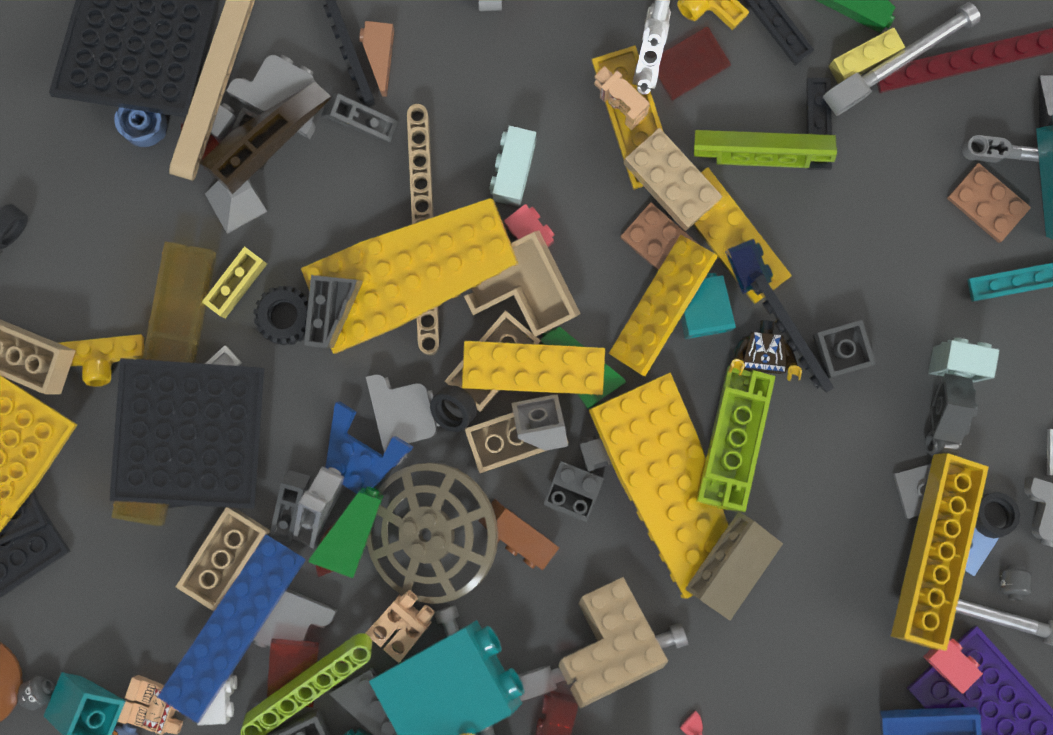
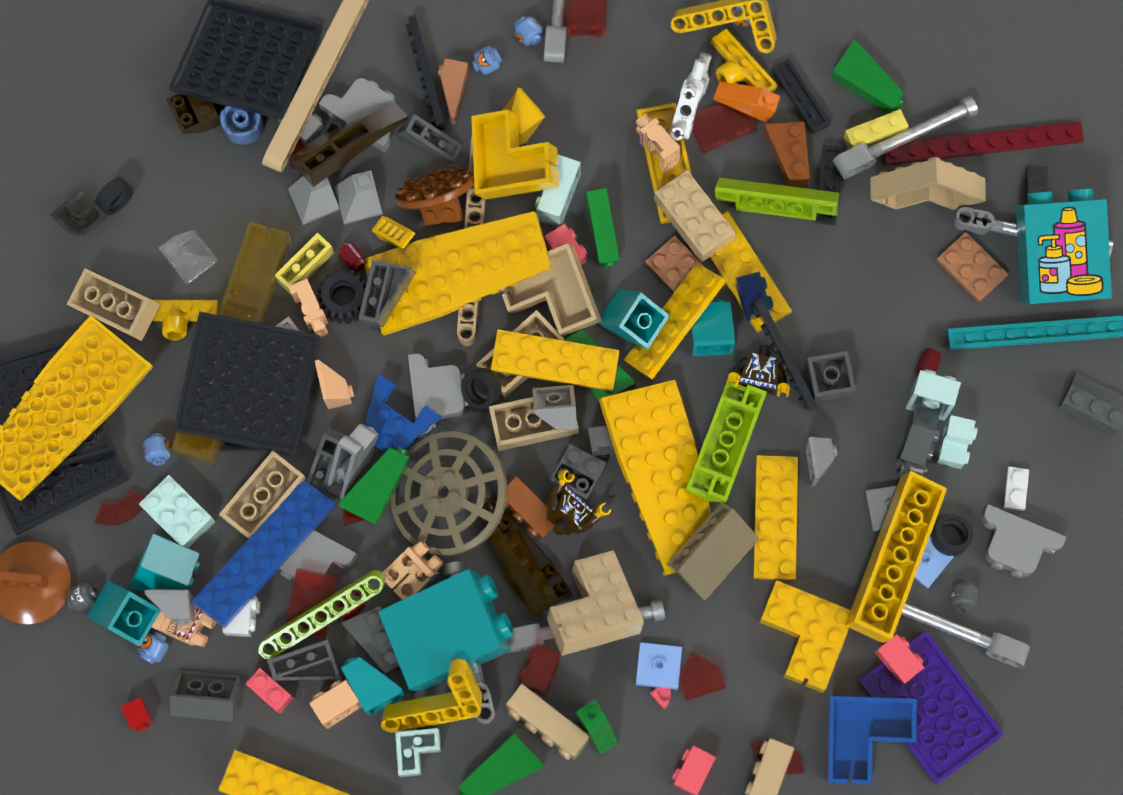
camera: 10 degrees right, 10 degrees down
(67, 588) = (121, 511): none -> clear red tile
(83, 119) = (193, 114): none -> dark brown slope
(96, 515) = (156, 449): none -> medium blue head
(100, 285) = (188, 255): none -> clear slope
(124, 654) = (165, 566): none -> teal slope
(128, 586) = (177, 512): none -> light aqua brick
(137, 699) = (174, 604): none -> light grey slope
(247, 334) = (311, 310): none -> light nougat hips
(285, 423) = (333, 387): none -> light nougat slope
(286, 196) = (358, 198): none -> light grey slope
(288, 267) = (352, 256): none -> dark red brick
(330, 234) = (391, 231): none -> yellow slope
(374, 184) = (436, 194): none -> dark orange bracket
(413, 17) = (486, 60): none -> medium blue head
(445, 145) = (504, 166): none -> yellow piece
(458, 85) = (528, 114): none -> yellow slope
(526, 600) = (526, 564): none -> dark brown wedge
(568, 201) = (602, 226): none -> green slope
(569, 538) = (568, 510): none -> dark brown torso
(616, 306) = (633, 318): none -> teal slope
(686, 696) = (658, 666): none -> light blue plate
(718, 33) = (747, 99): none -> orange slope
(733, 704) = (700, 677): none -> clear red slope
(772, 88) = (789, 148): none -> dark orange wedge
(797, 514) = (775, 517): none -> yellow plate
(840, 445) = (819, 456): none -> light grey slope
(860, 644) = (816, 625): none -> yellow piece
(944, 113) = (928, 181): none -> tan piece
(950, 320) = (928, 360): none -> dark red brick
(993, 405) = (955, 440): none -> light aqua brick

